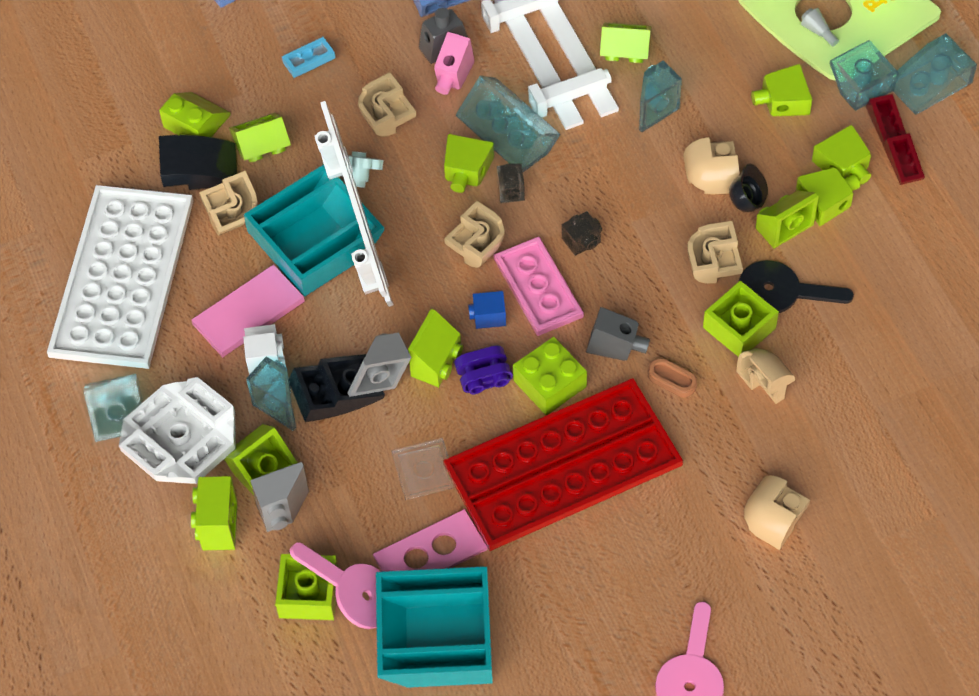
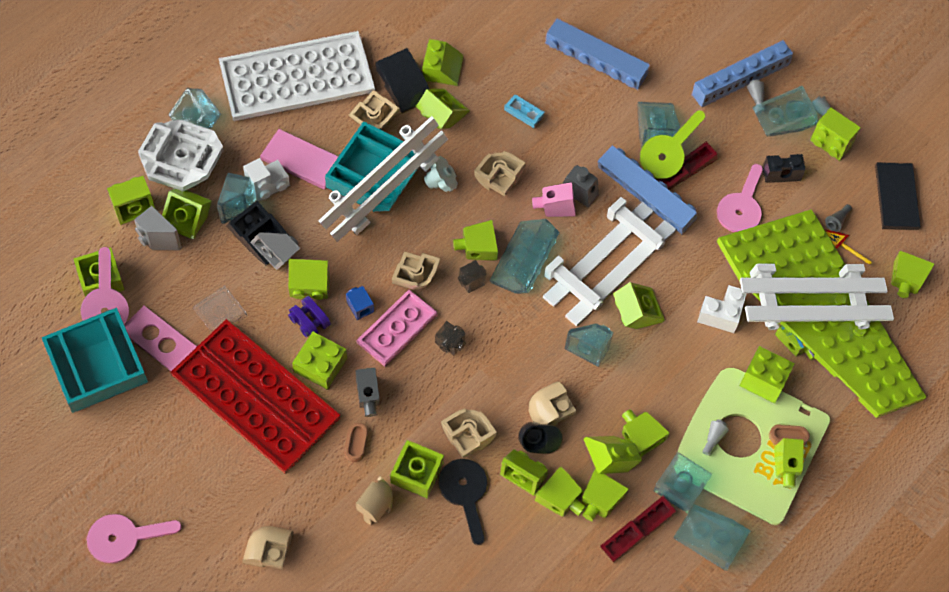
camera: 60 degrees right, 5 degrees up
(801, 123) = (612, 454): none -> lime slope

